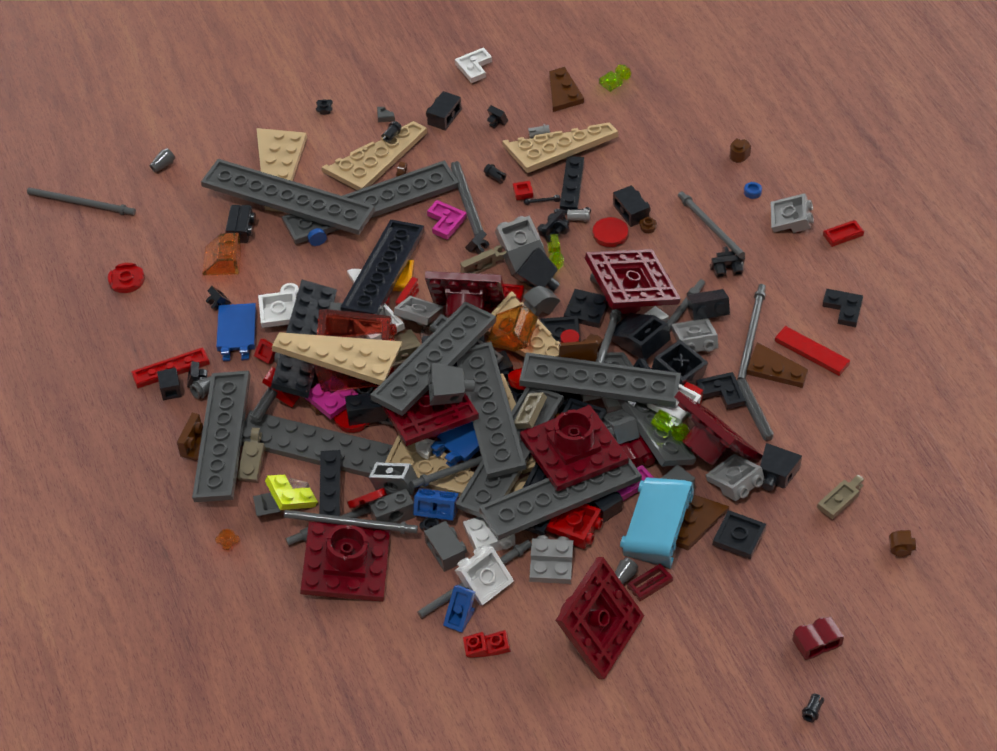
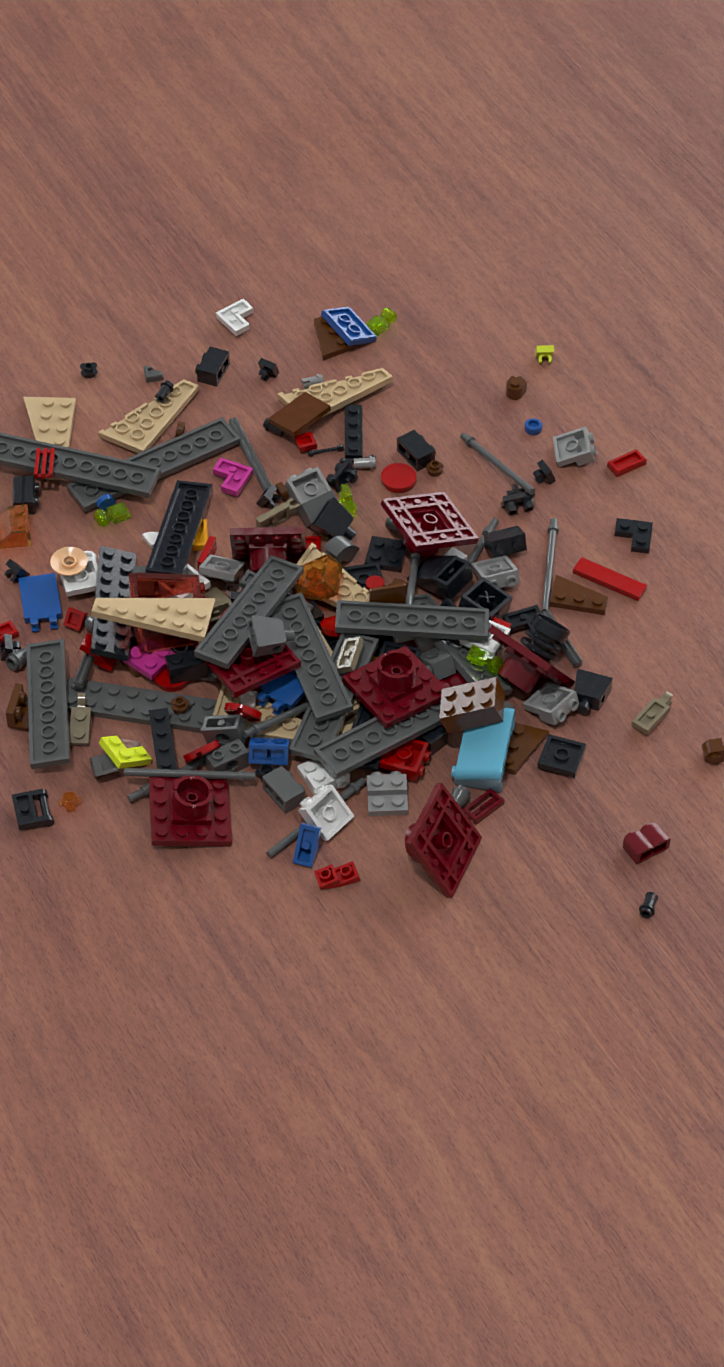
camera: 10 degrees left, 0 degrees up
(181, 544) = (26, 811): none -> black plate
(263, 184) = (45, 452): none -> red tile
(267, 292) = (69, 561): none -> light nougat dish
(325, 248) = (116, 513): none -> clear neon green plate
(353, 451) = (179, 704): none -> reddish brown plate
(415, 461) = (247, 712): none -> red tile
(491, 237) = (282, 491): none -> reddish brown tile
(519, 162) = (299, 414): none -> reddish brown tile
(582, 80) = (348, 326): none -> blue tile
(648, 474) = (472, 705): none -> reddish brown brick
(734, 409) = (545, 636): none -> black wheel
(757, 237) = (543, 473): none -> black tile
(772, 116) = (544, 351): none -> neon yellow tile

